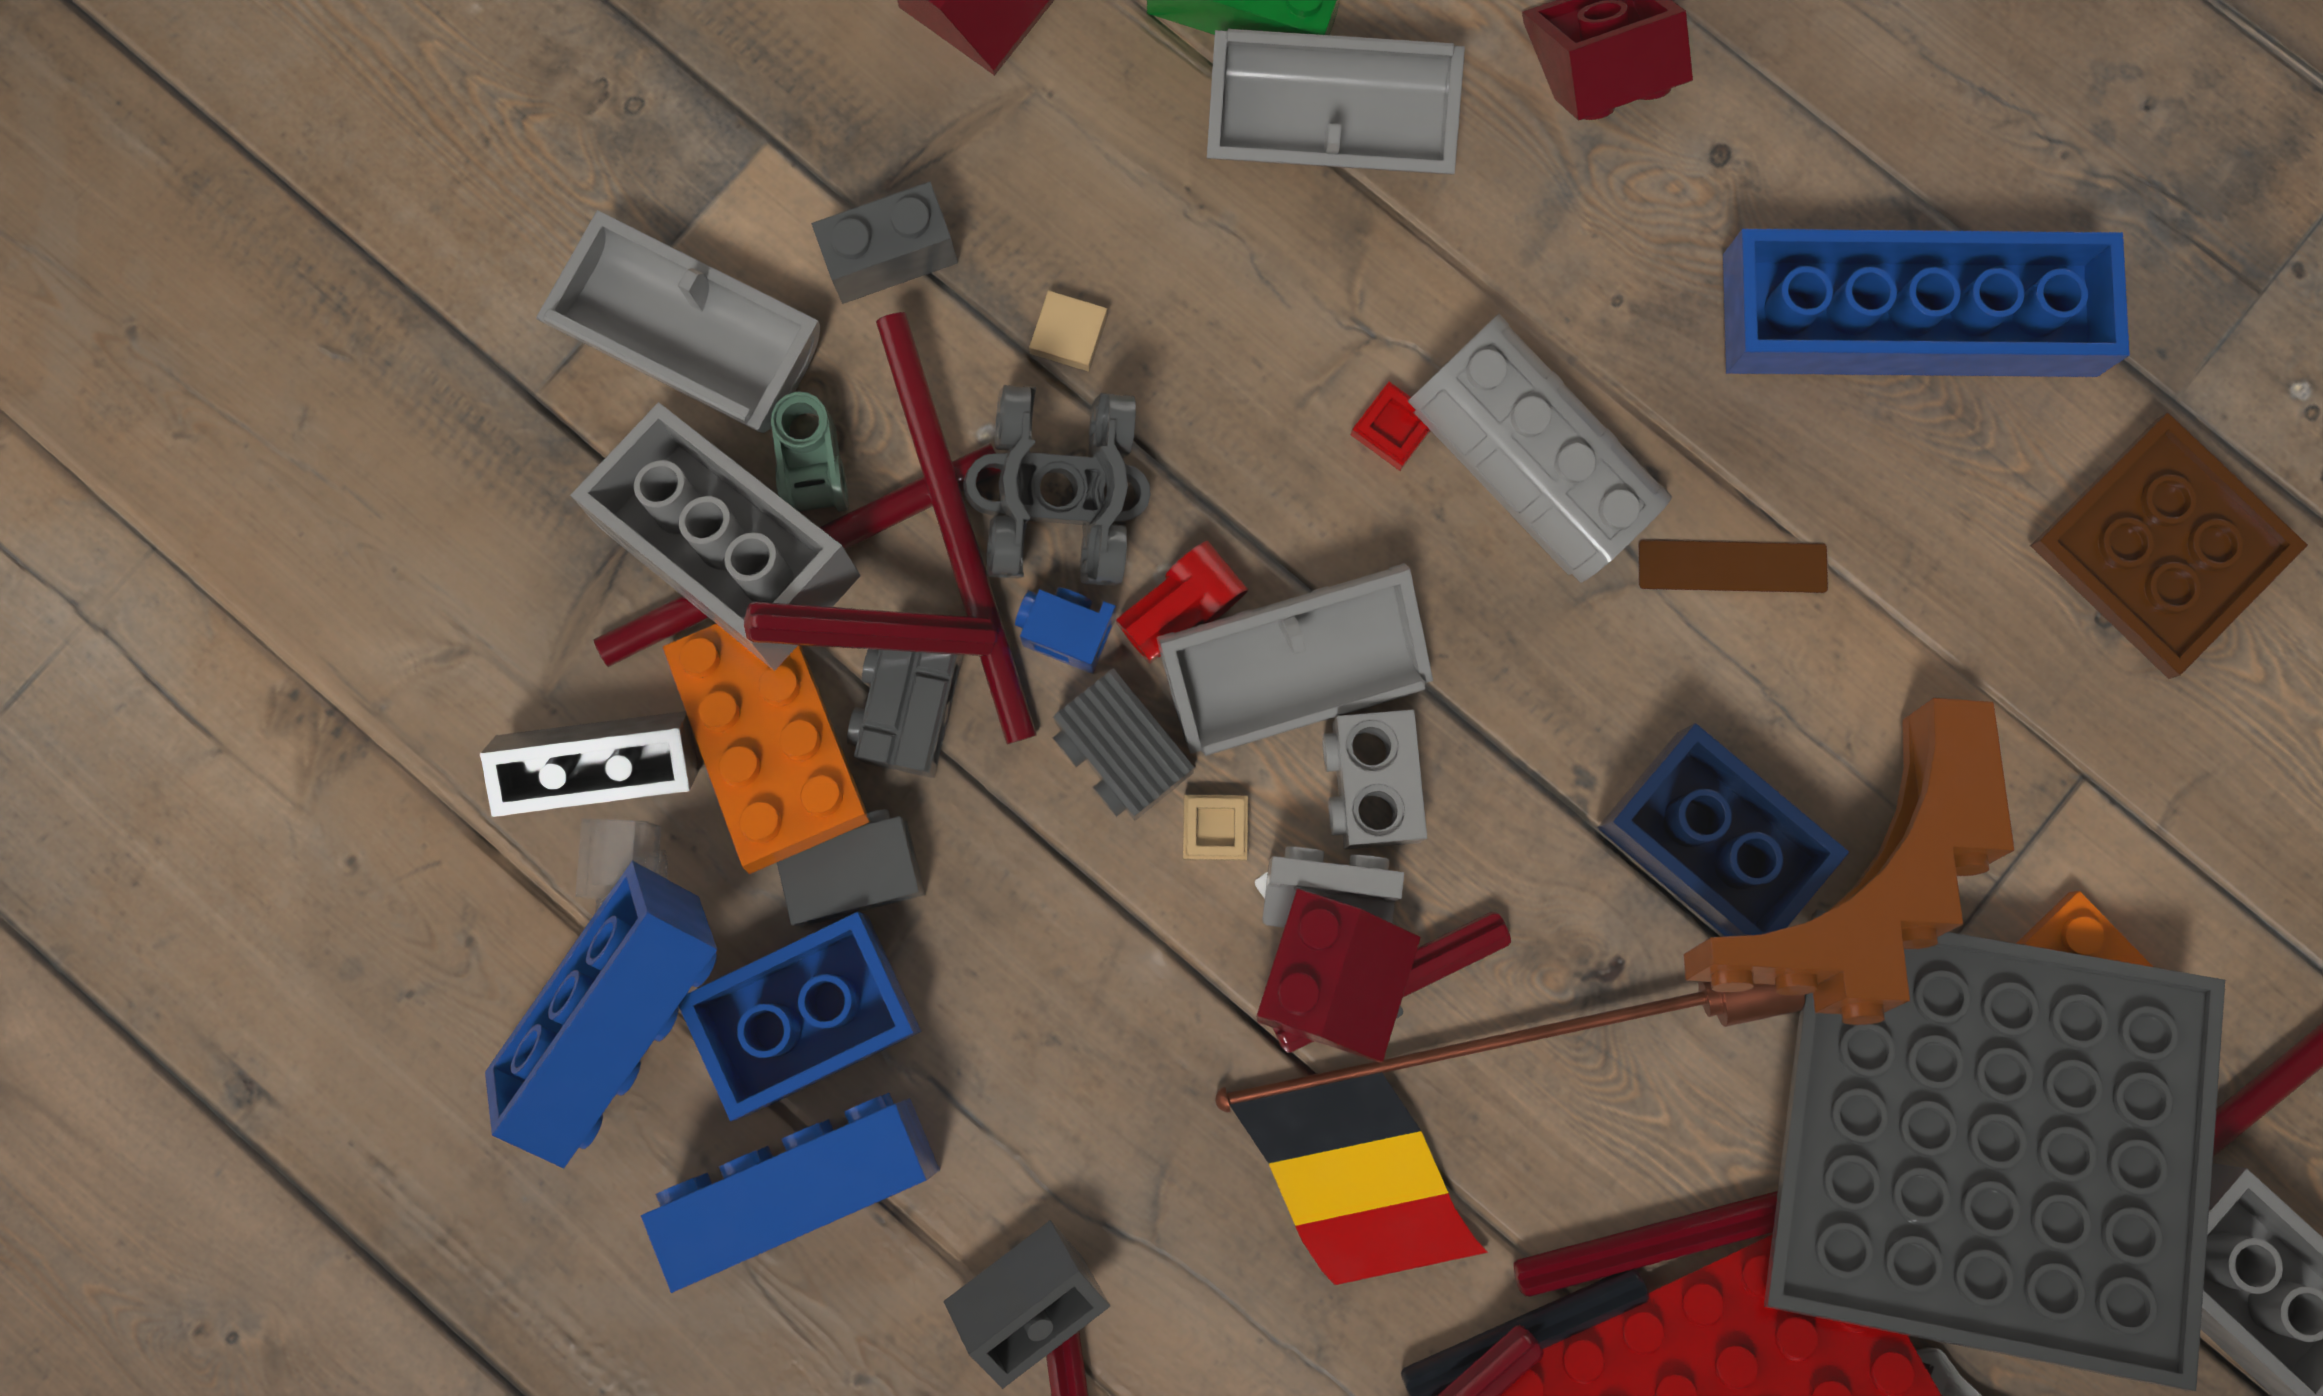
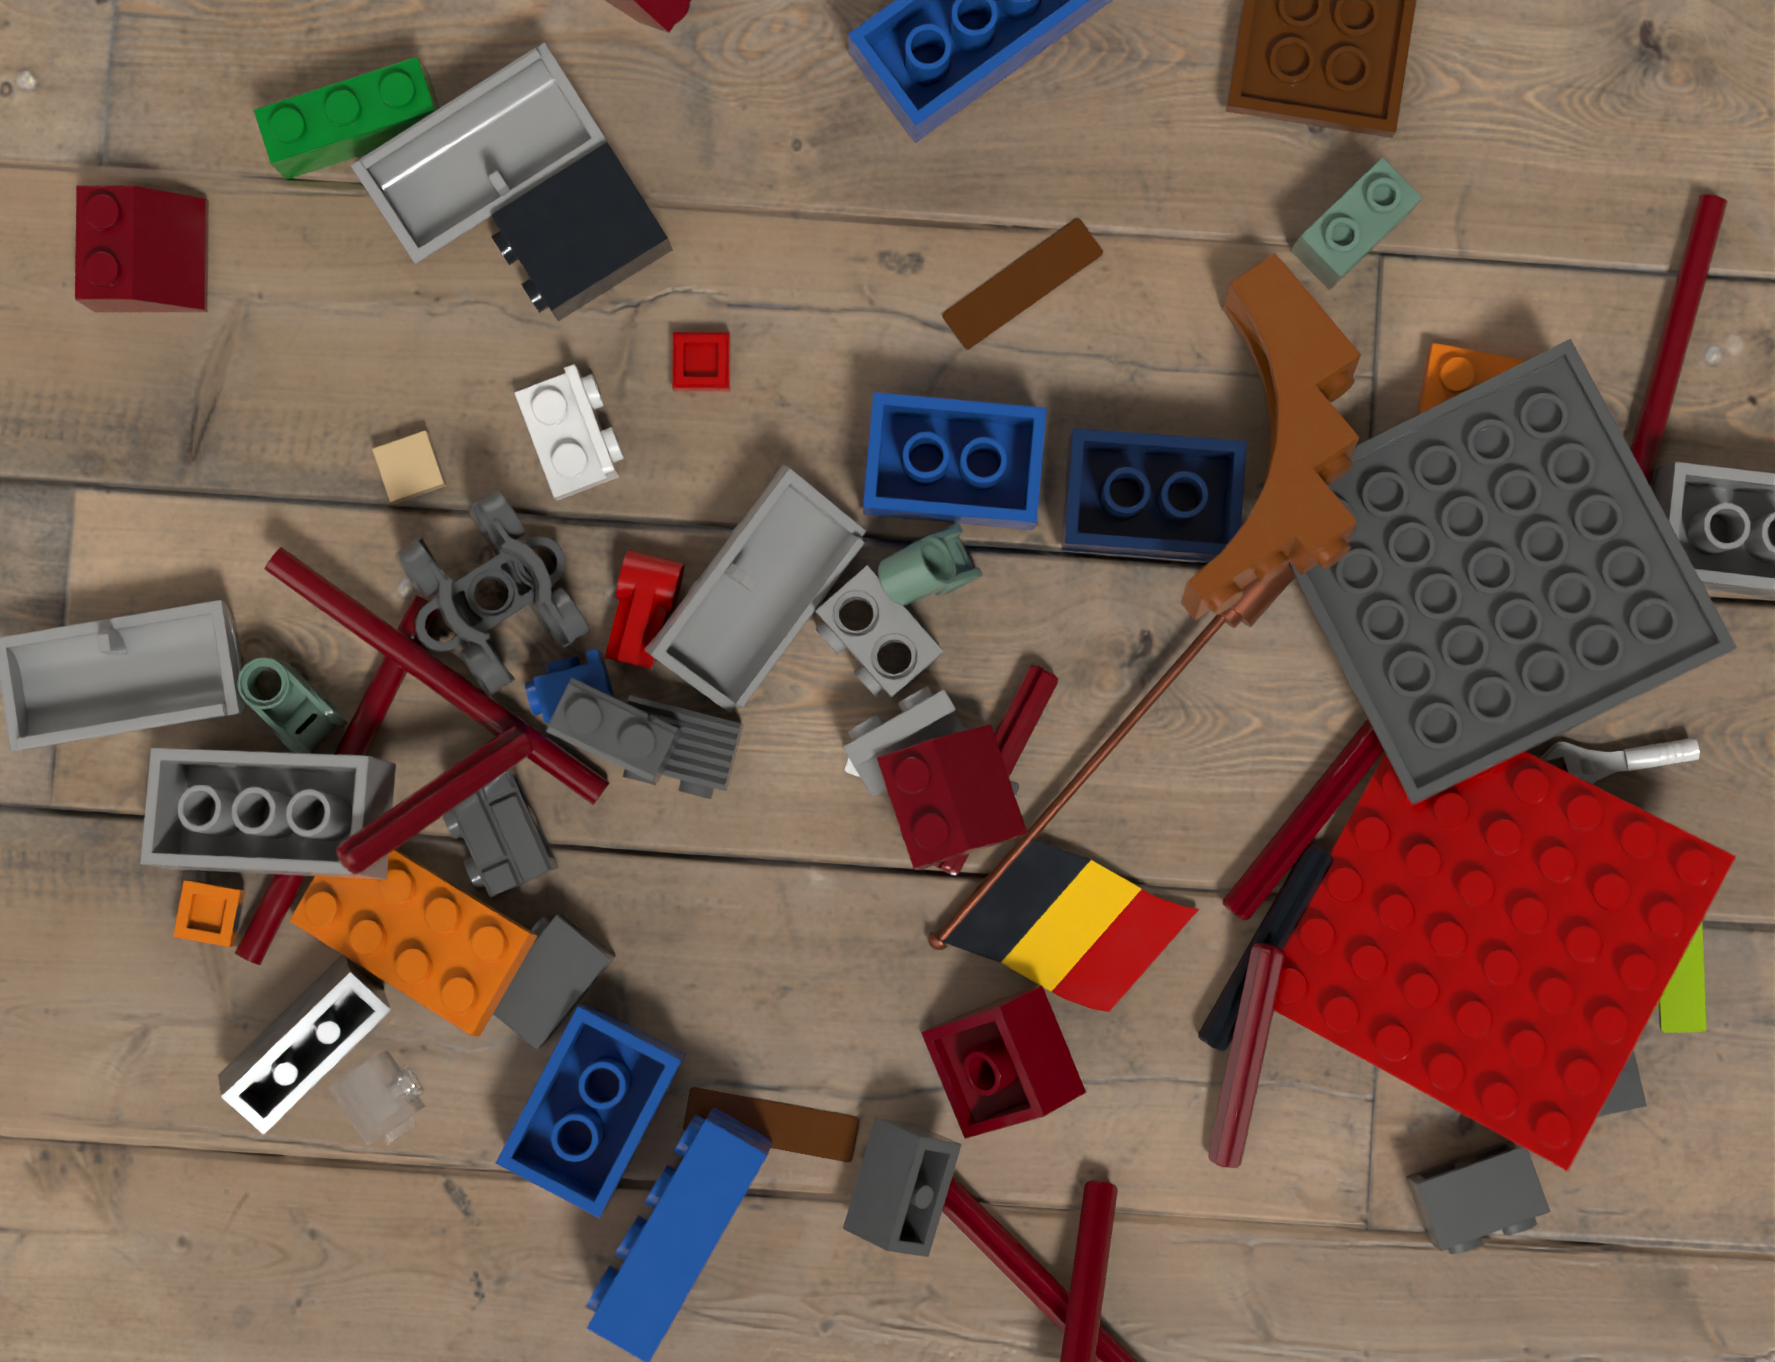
camera: 35 degrees left, 5 degrees up
(598, 587) = (209, 913): none -> orange plate
(599, 1016) = (449, 1214): blue brick -> none
(885, 242) = (224, 503): dark grey brick -> none
(963, 1166) = (788, 1126): none -> reddish brown sticker
(1078, 687) = (614, 730): none -> dark grey brick
(1204, 1260) = (1004, 1063): none -> dark red slope
(1215, 827) = (787, 753): tan tile -> none
(1229, 403) = (568, 432): none -> white bracket
(1370, 236) = (579, 233): none -> black brick
(1467, 753) = (928, 568): none -> sand green piece
(1539, 451) = (820, 304): light grey container -> none
(1562, 676) = (954, 461): none -> blue brick
(2085, 730) = (1356, 223): none -> sand green brick

